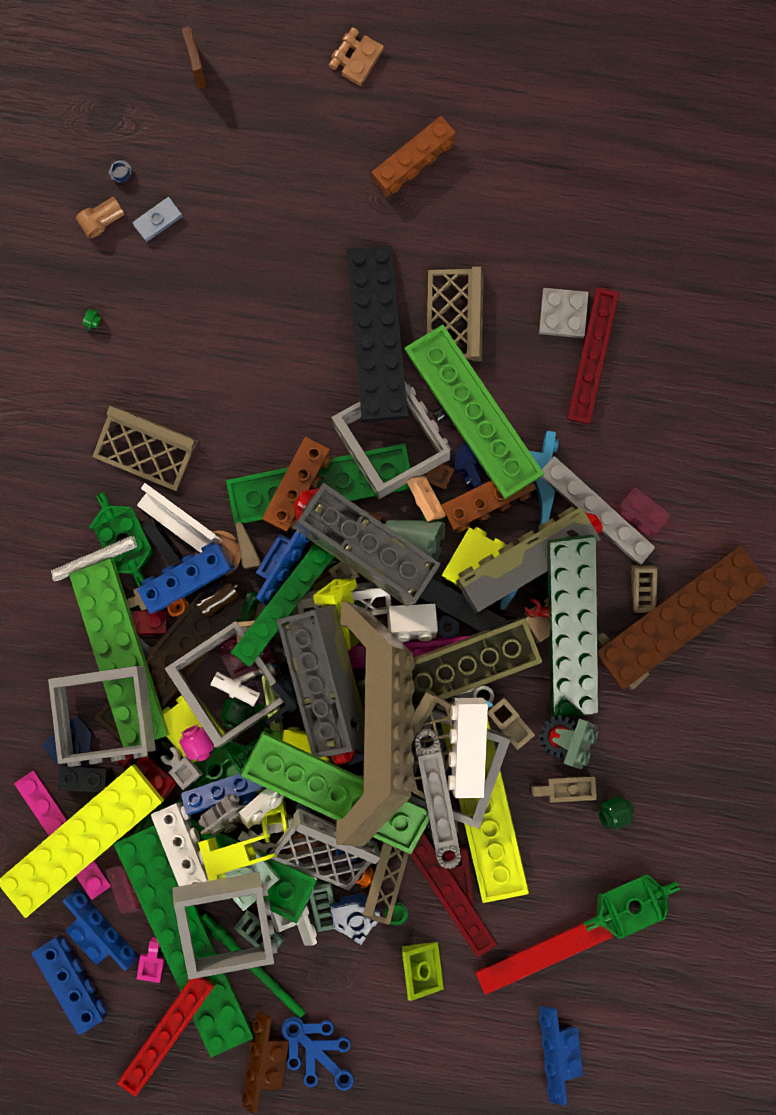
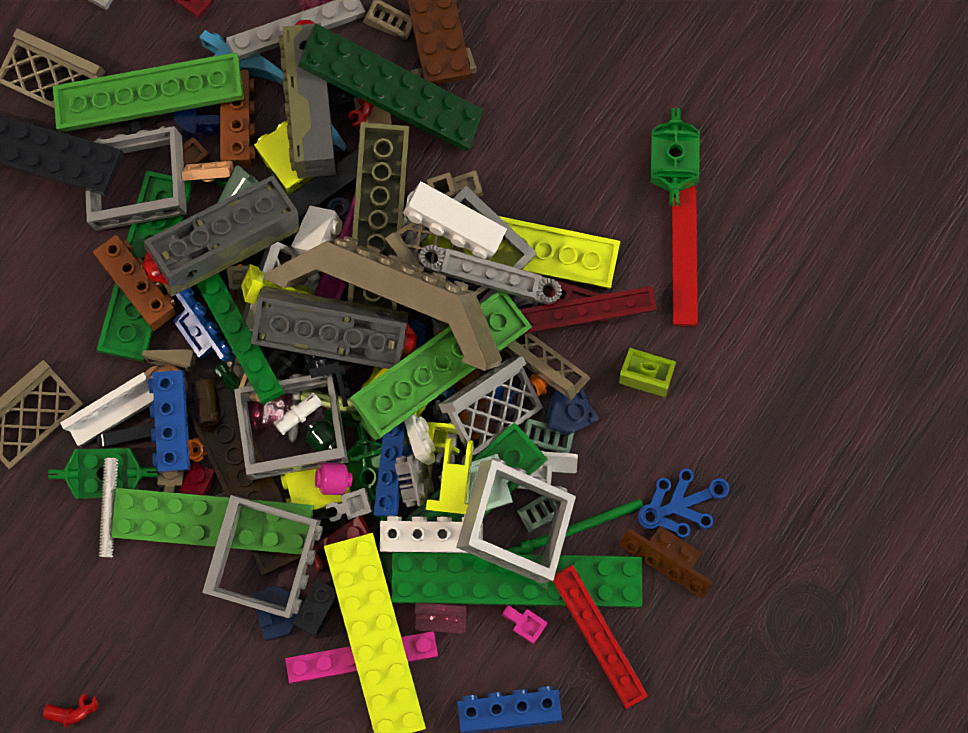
camera: 60 degrees left, 10 degrees down
(95, 933) = (474, 667): blue bracket -> none
(399, 914) = (589, 369): green plate -> none
(560, 1053) = (782, 280): blue bracket -> none
(567, 789) = (541, 167): dark tan plate -> none
(568, 740) = (493, 145): sand green plate -> none
(616, 813) = (583, 132): dark green head -> none

